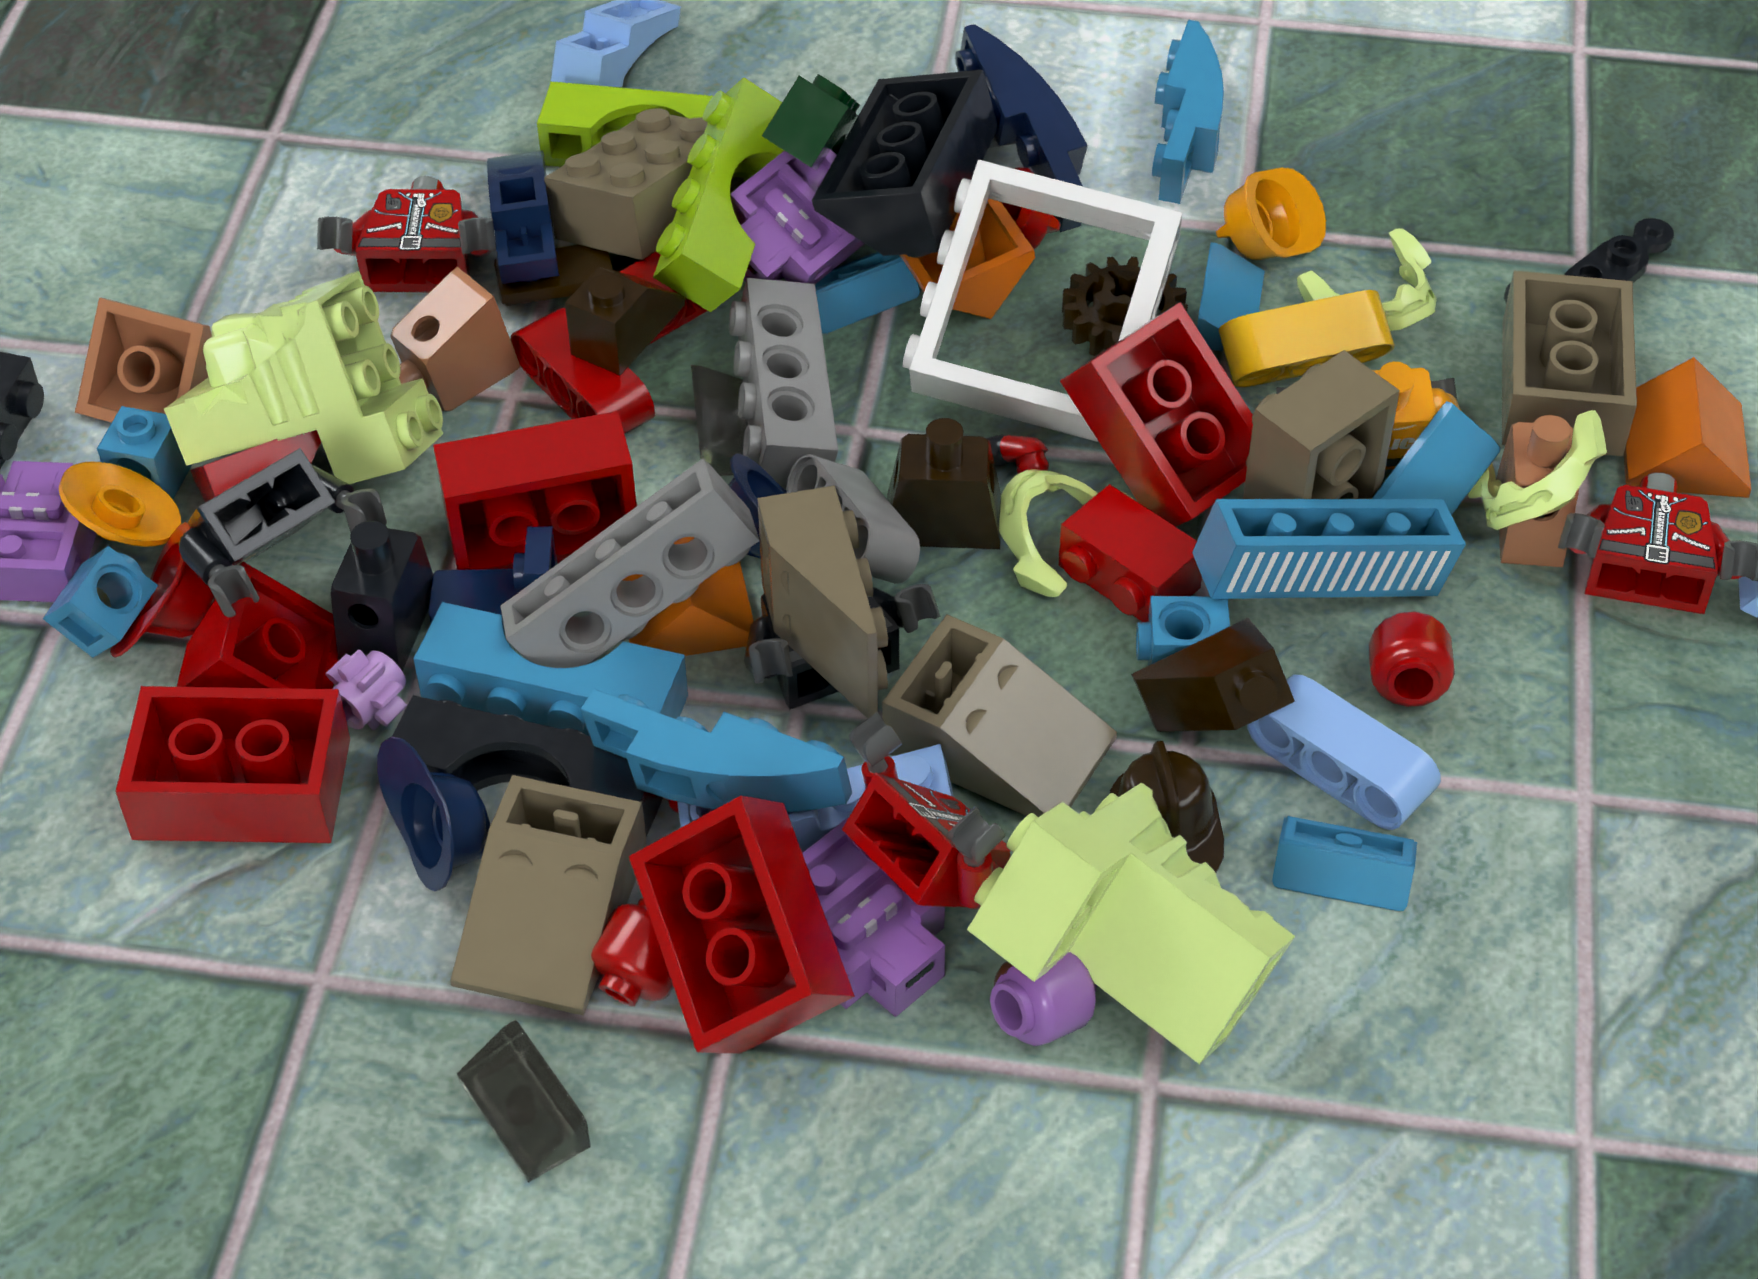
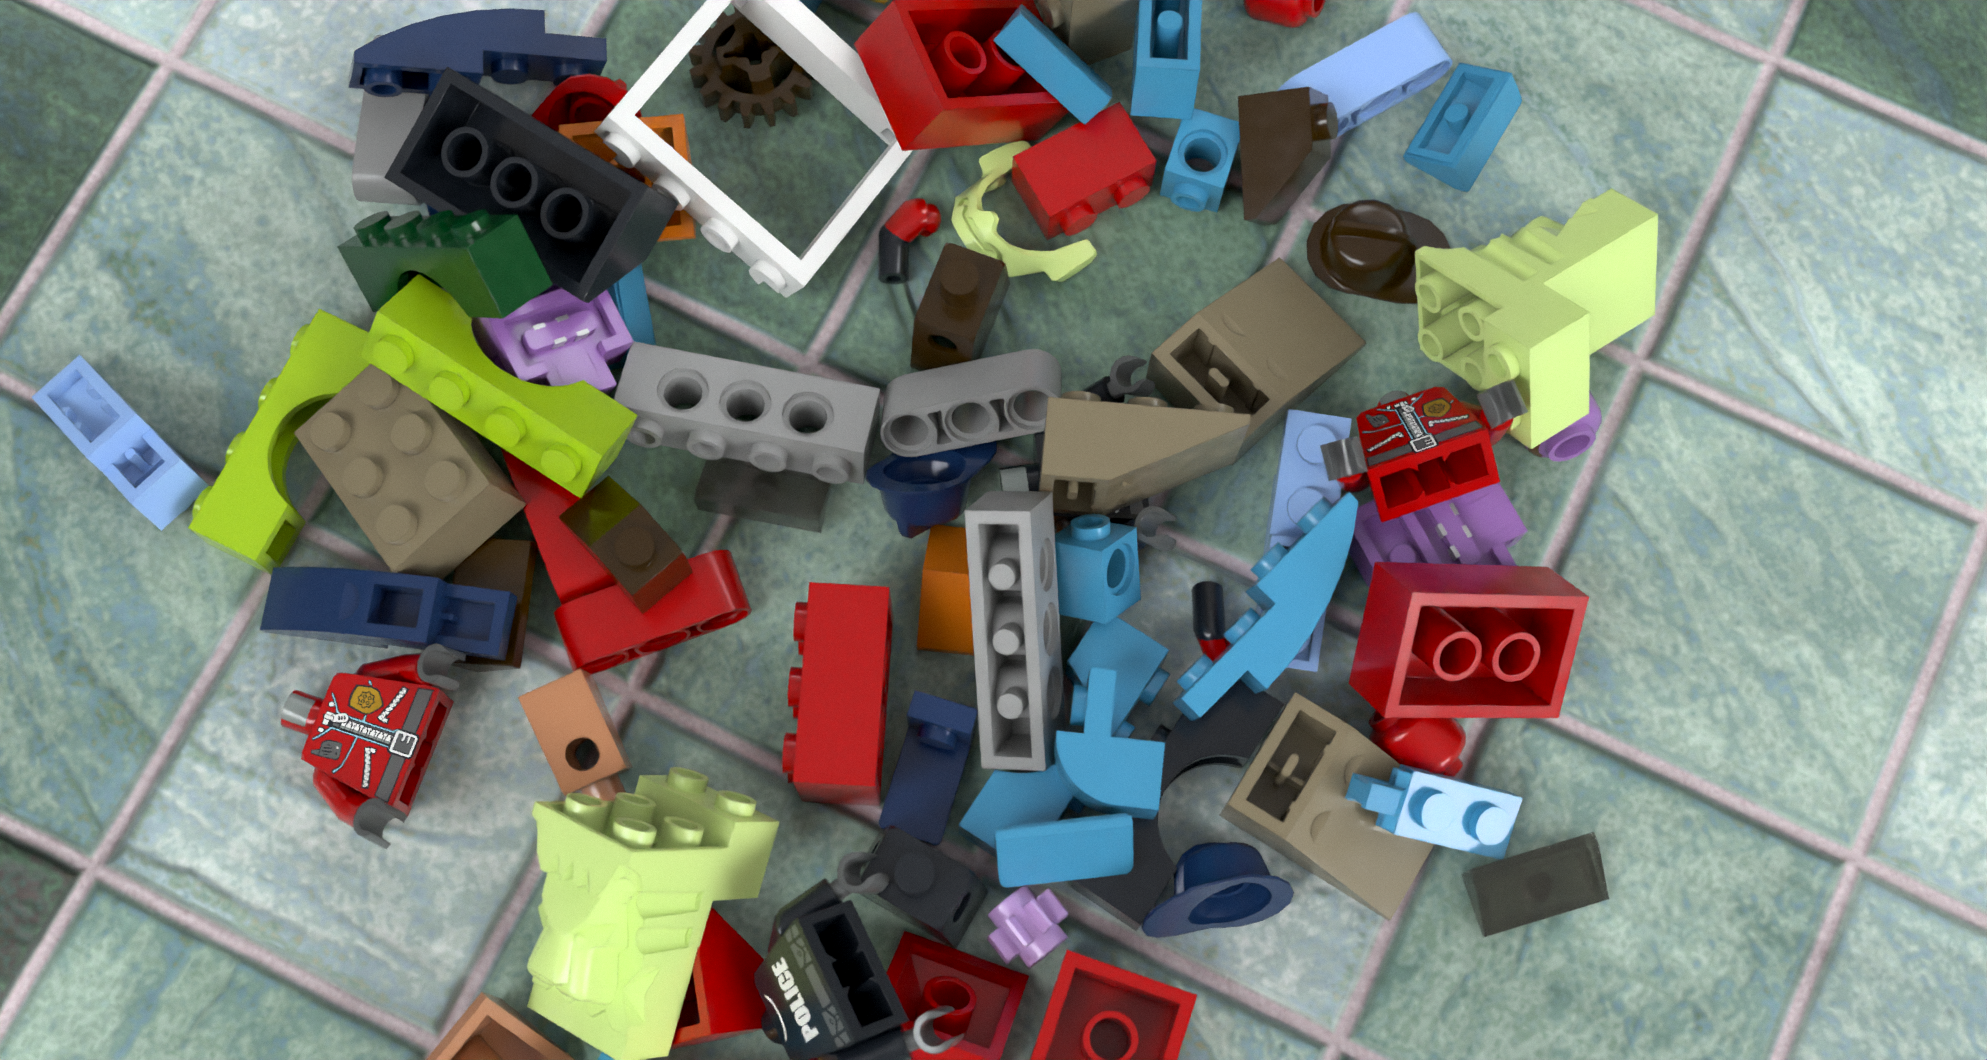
camera: 75 degrees left, 25 degrees up
(434, 667) = (1064, 850): none -> dark azure slope
(523, 661) = (1106, 770): none -> dark azure brick
(567, 971) = (1440, 809): none -> hinge
(710, 651) = (1097, 568): none -> dark azure brick
(1211, 467) = (1053, 65): none -> dark azure slope

